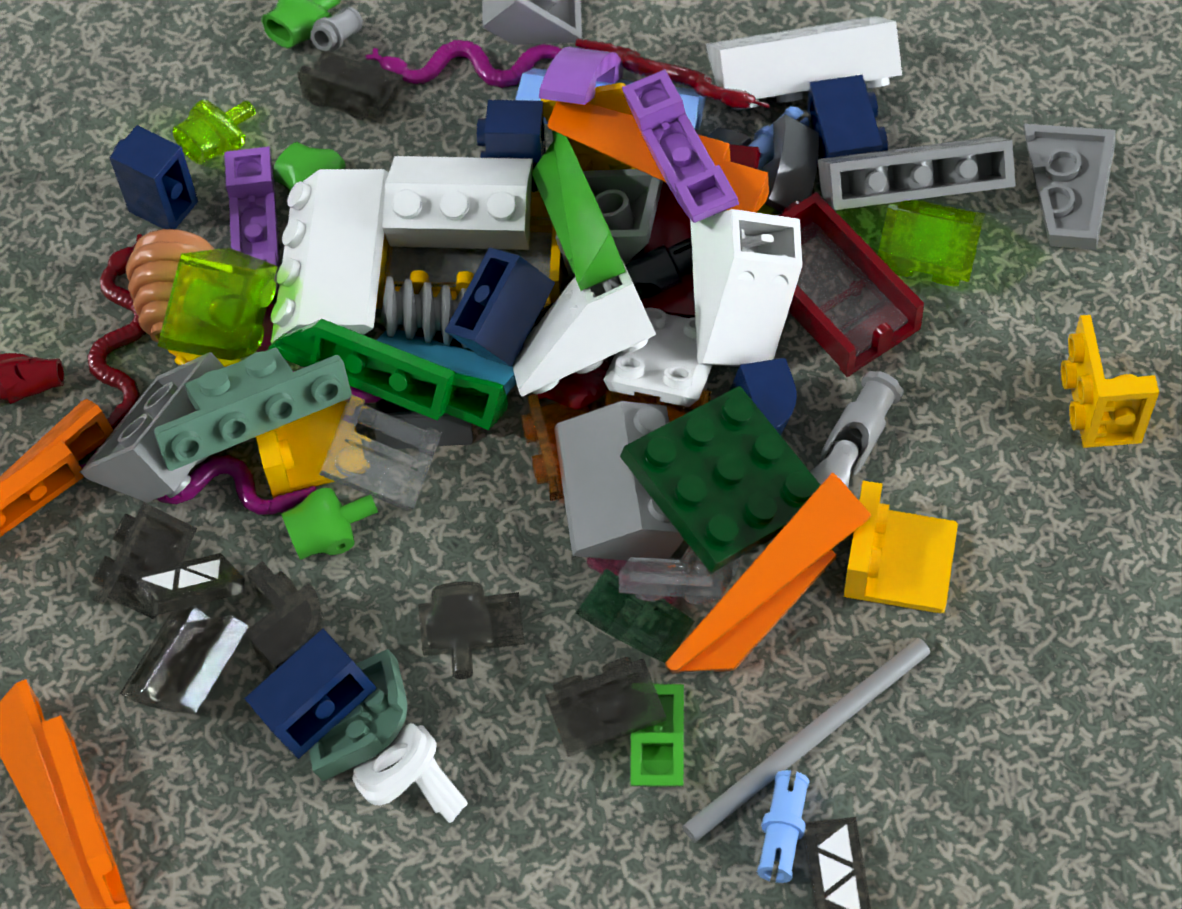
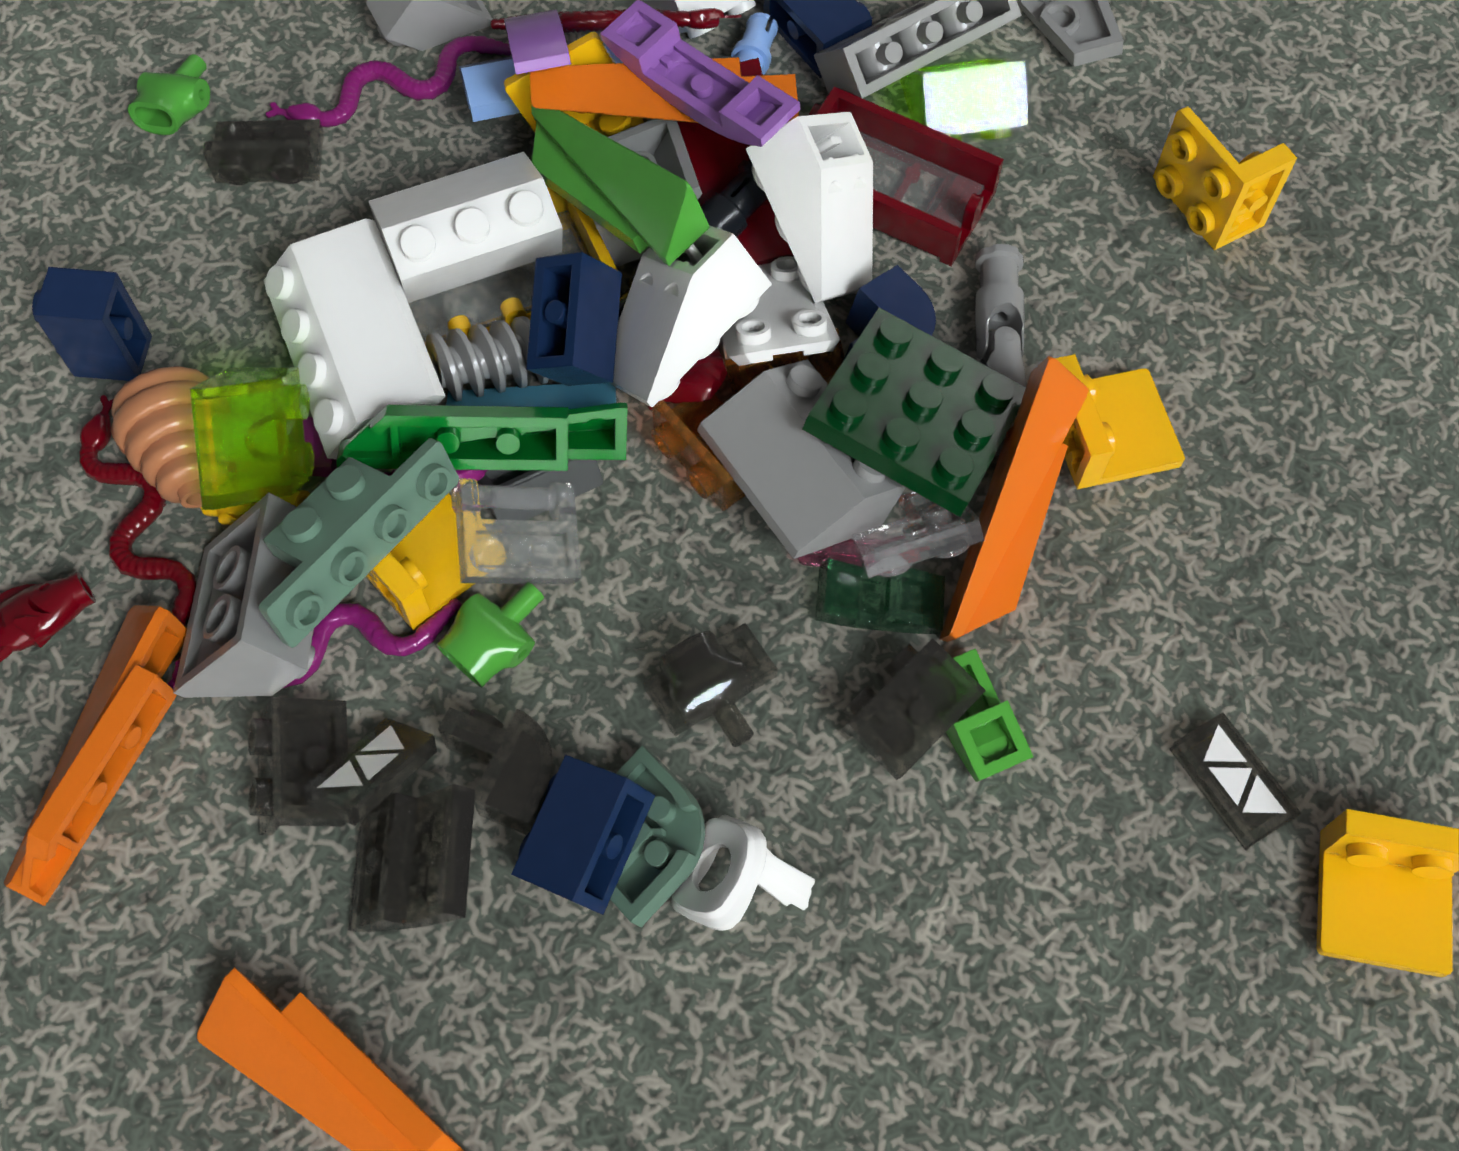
camera: 30 degrees left, 5 degrees up
(211, 131) = (133, 250): clear neon green piece -> none
(253, 204) = (219, 312): medium lavender slope -> none
(301, 161) = (257, 250): bright green piece -> none
(330, 32) = (217, 98): light grey pin -> none
(513, 131) = (487, 127): dark blue brick -> none
(783, 826) = (1158, 755): light blue pin -> none
(794, 163) = (787, 55): dark grey slope -> none
(805, 740) = (1122, 658): light grey piece -> none

